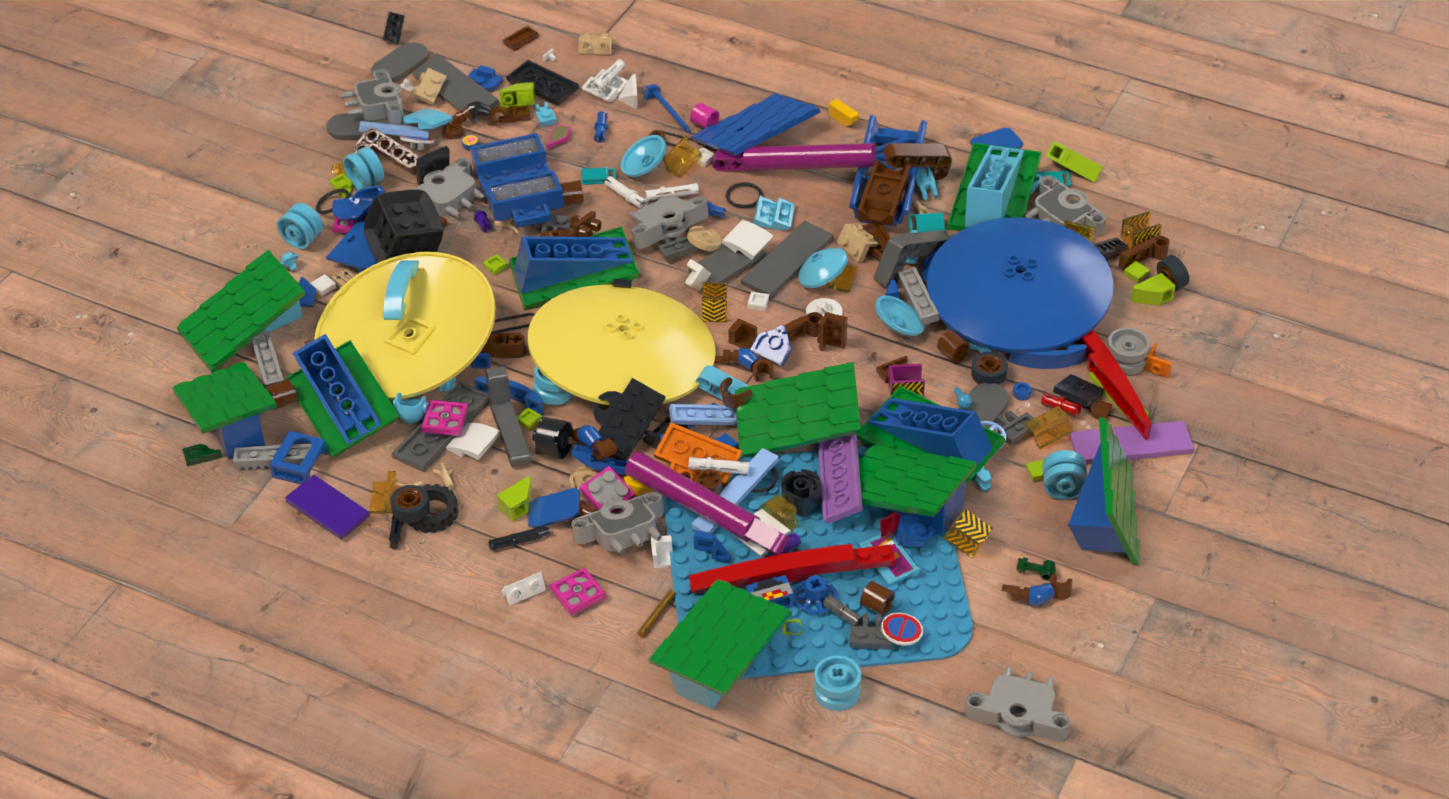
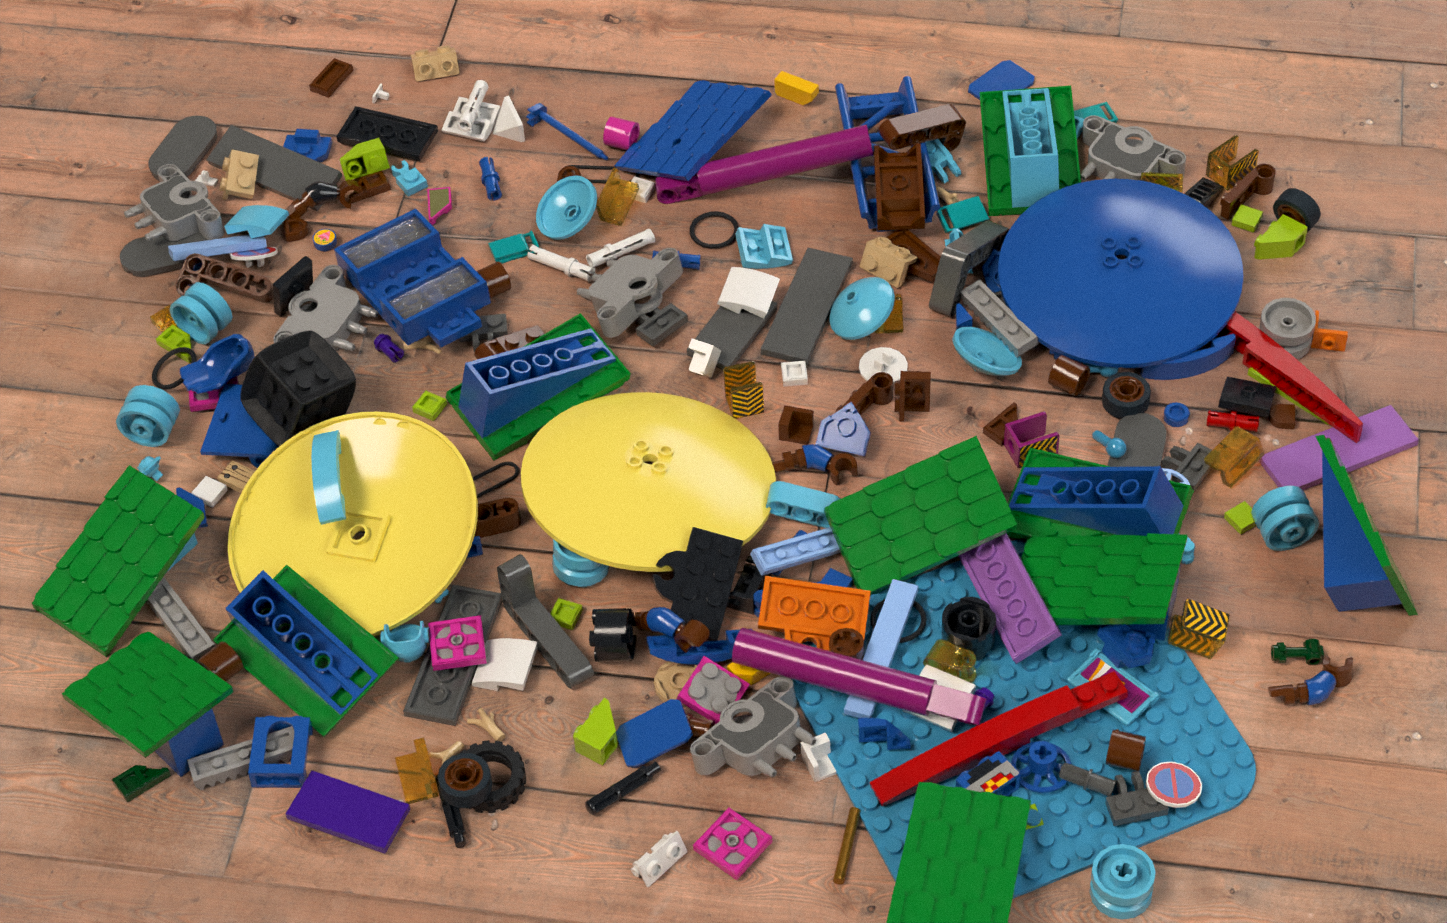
camera: 15 degrees left, 5 degrees up
(393, 27) = (157, 101): black hips -> none
(518, 393) = (544, 582): blue slope -> none
(584, 225) = (532, 325): reddish brown hips -> none
(622, 283) = (612, 393): black tile -> none
(704, 239) = (691, 304): tan tile -> none
(718, 465) = (849, 619): white pin -> none
(733, 401) = (826, 524): reddish brown helmet -> none
(889, 525) = (1099, 645): dark red tile -> none
(1022, 698) = (1364, 838): light grey piece -> none
(1074, 161) = (1112, 88): lime slope -> none

